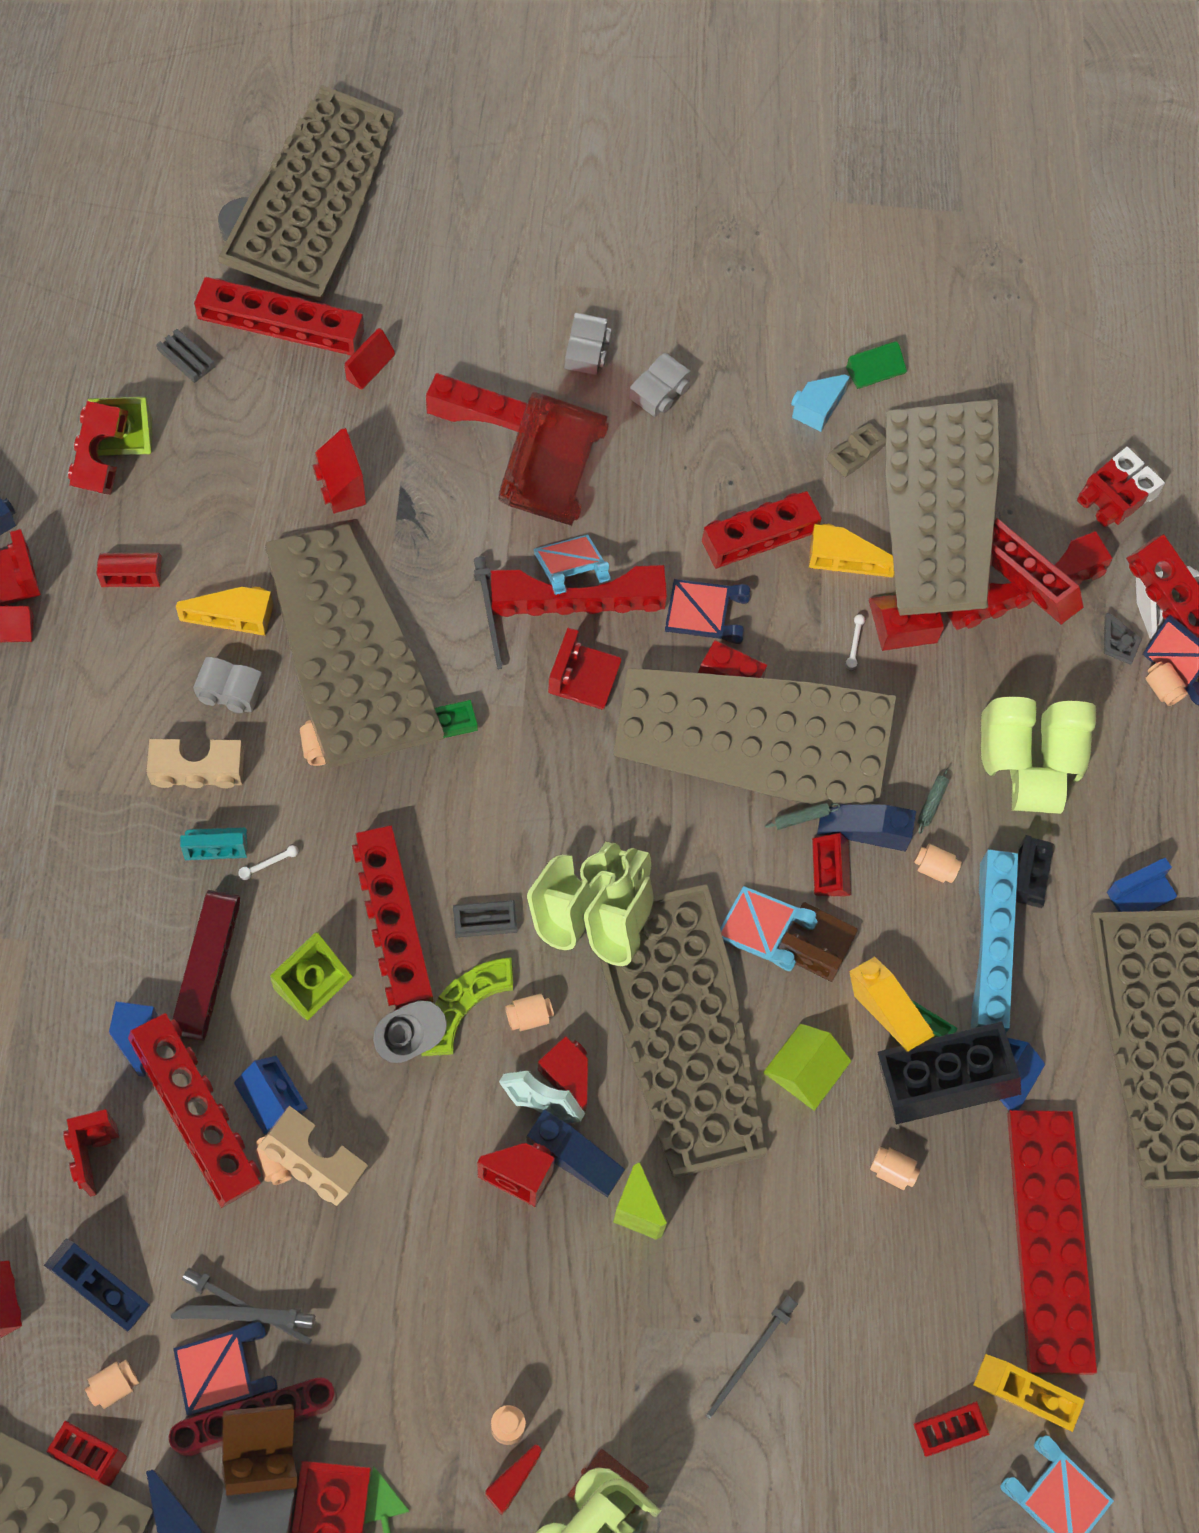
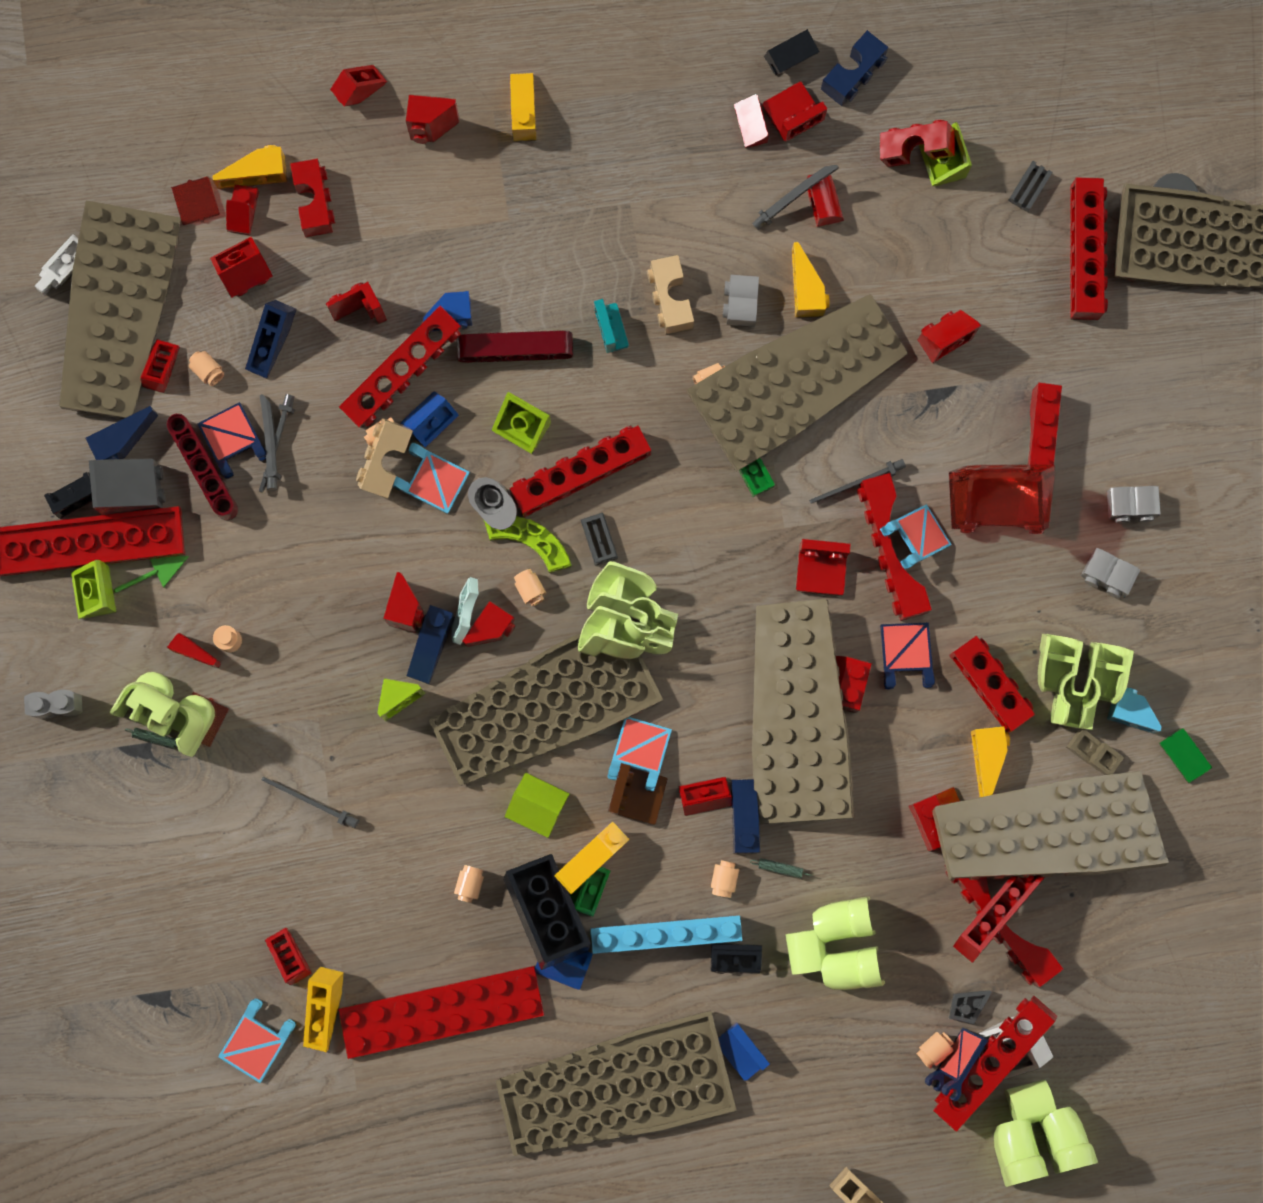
camera: 80 degrees right, 15 degrees up
(129, 635) = (793, 195): none -> dark grey sword
(245, 872) = (594, 355): white hinge -> none
(258, 1450) = (174, 475): reddish brown bracket -> none
(356, 1105) = (435, 481): none -> coral flag
(369, 359) = (1067, 330): red slope -> none
(772, 408) = (1105, 678): none -> yellowish green piece
(802, 816) = (740, 764): sand green piece -> none
(851, 662) = (890, 781): white hinge -> none
(1120, 488) = (1109, 983): red hips -> none

